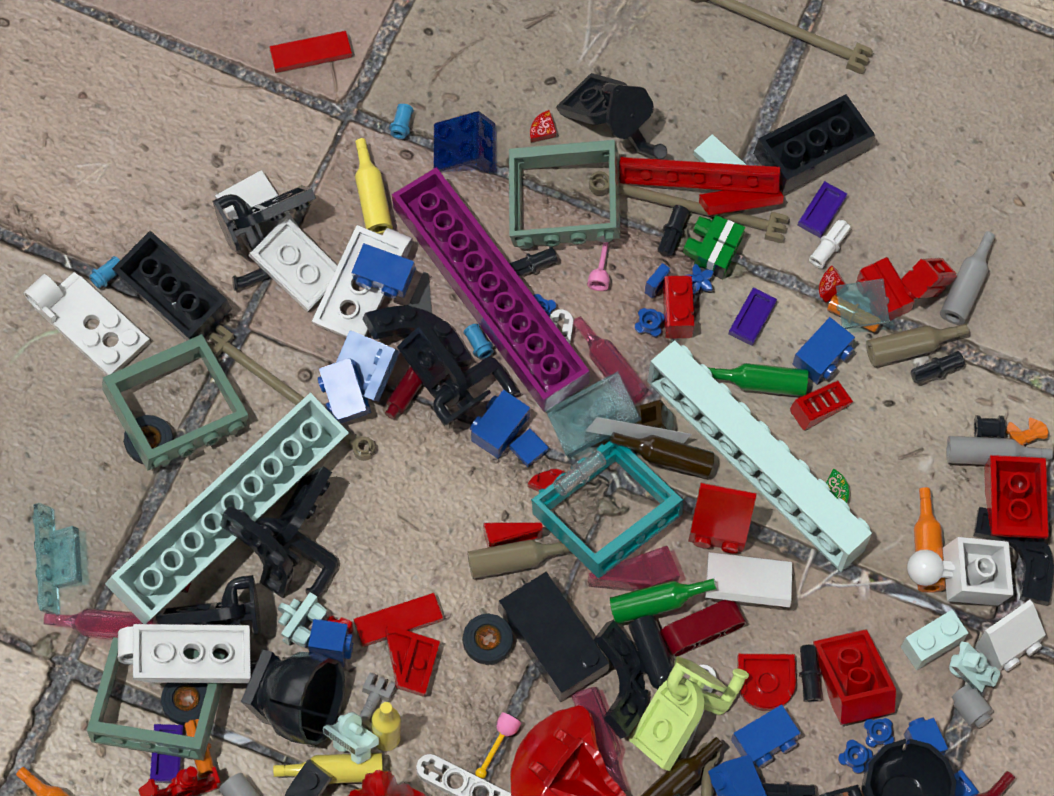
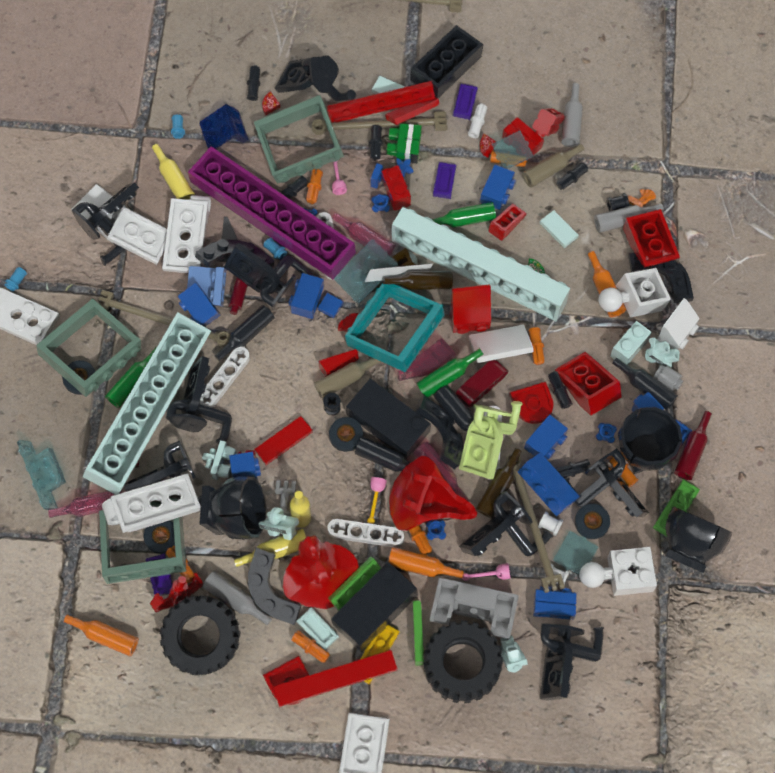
camera: 15 degrees left, 0 degrees up
(171, 288) = (62, 275): black brick -> none
(204, 473) = (122, 389): none -> green piece
(276, 563) = (193, 429): black plate -> none
(310, 51) = (103, 100): red tile -> none
(348, 507) = (224, 378): none -> white beam
(383, 271) = (198, 221): blue brick -> none
(399, 447) = (247, 330): none -> black piece
(411, 659) = (301, 462): red wing -> none
(485, 582) = (332, 398): none -> black bush
(526, 684) = (381, 455): none -> black piece
(529, 90) = (253, 83): none -> black axle
(564, 268) = (314, 186): none -> orange axle
(579, 473) = (370, 309): clear pin -> none
(799, 599) = (535, 337): none -> orange axle
(883, 725) = (618, 407): blue plate -> none
(891, 439) = (559, 229): none -> light aqua tile
(938, 706) = (646, 383): none -> black piece

